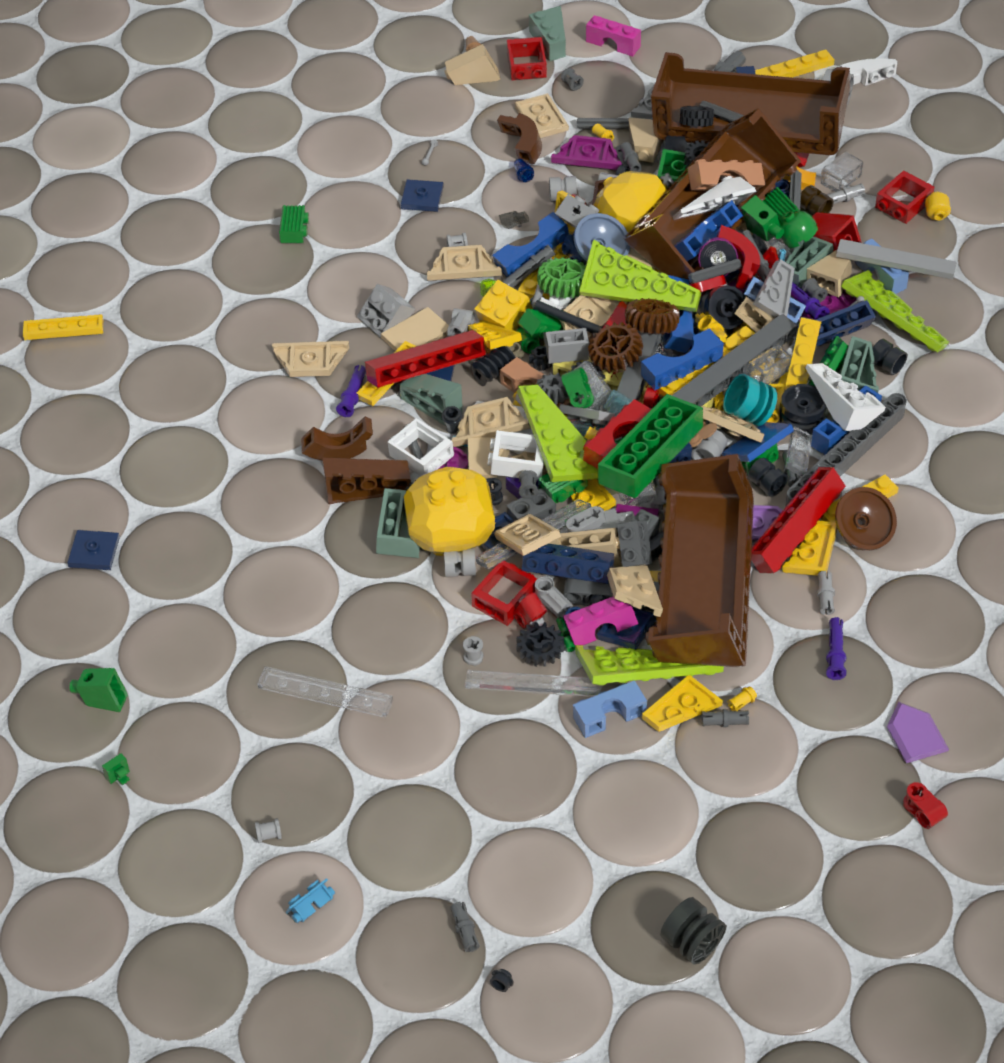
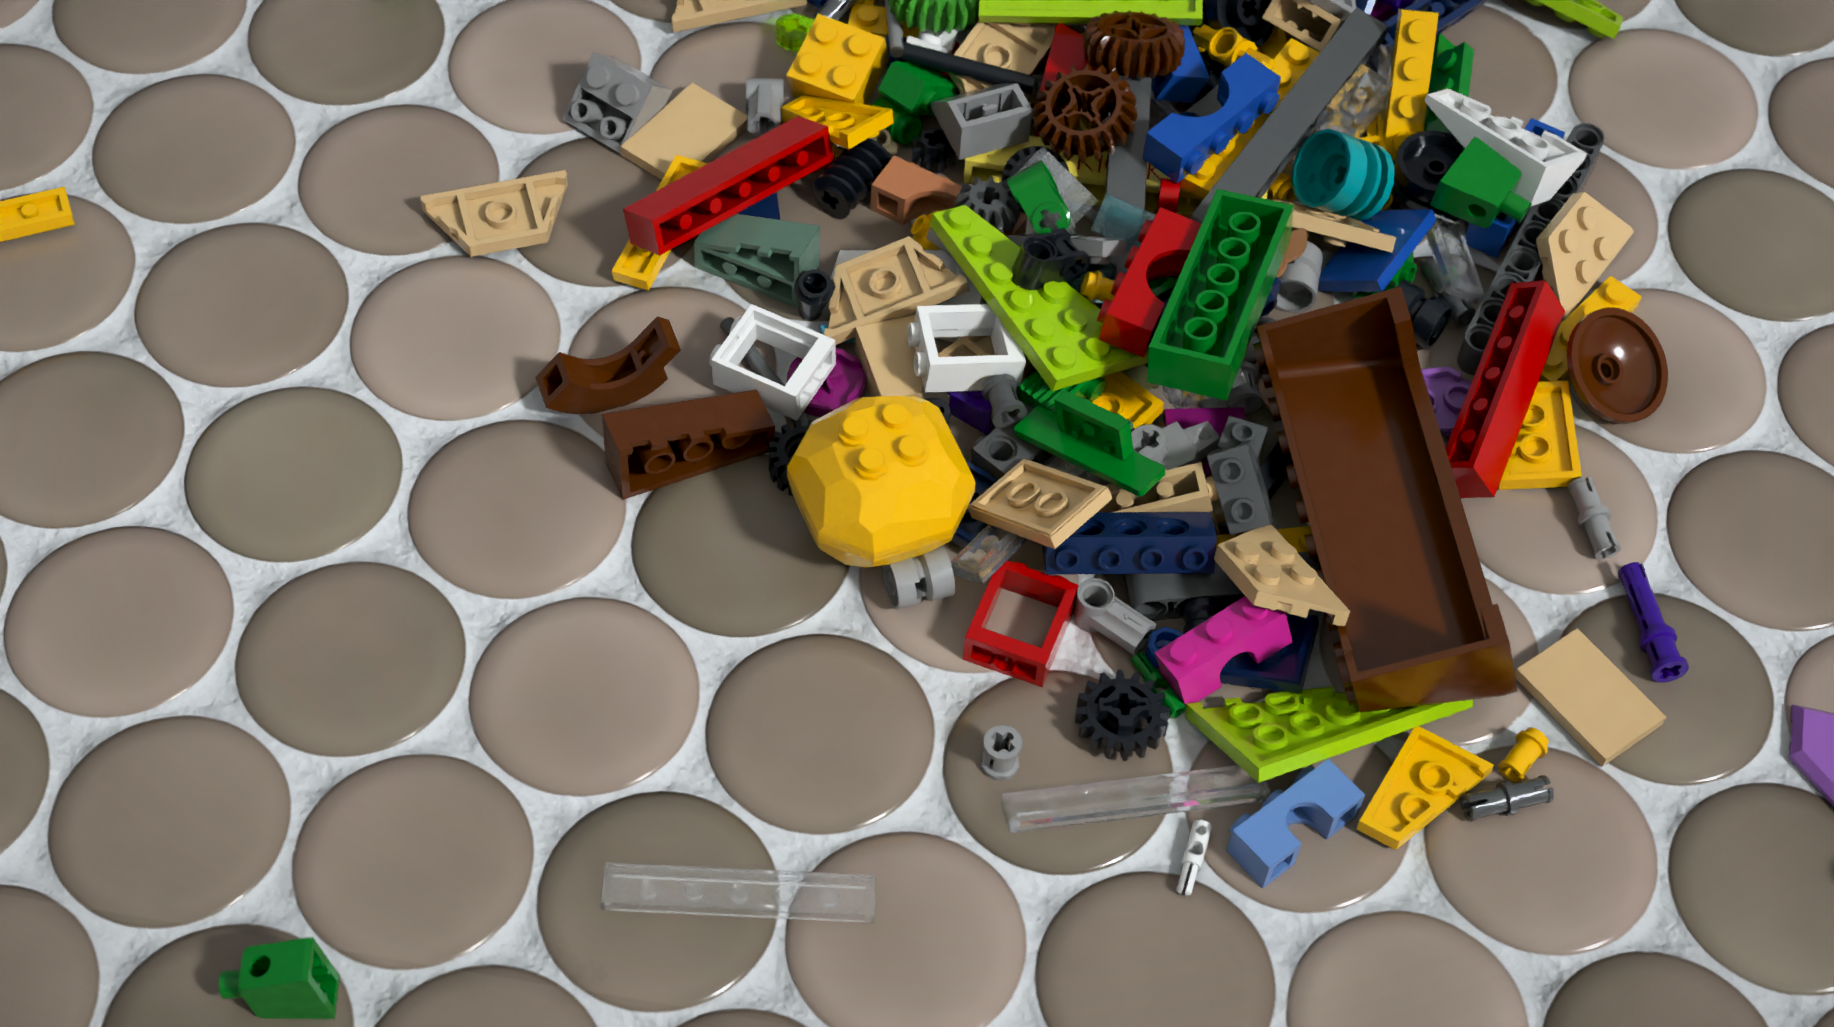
camera: 20 degrees left, 5 degrees up
(93, 550) = (181, 677): dark blue plate -> none
(349, 396) = (601, 278): dark purple pin -> none
(393, 528) = (771, 525): sand green wedge -> none
(529, 610) = (1087, 654): red piece -> none
(552, 719) = (1197, 841): none -> white pin
(562, 509) = (1092, 441): none -> green bracket
(568, 416) = (1048, 259): none -> black piece
(789, 679) = (1589, 697): none -> tan tile
(818, 415) = (1481, 187): none -> green torso
(858, 364) = (1500, 79): sand green wedge -> none
(870, 456) = (1579, 247): none -> tan wing
(888, 357) = (1537, 59): black wheel -> none

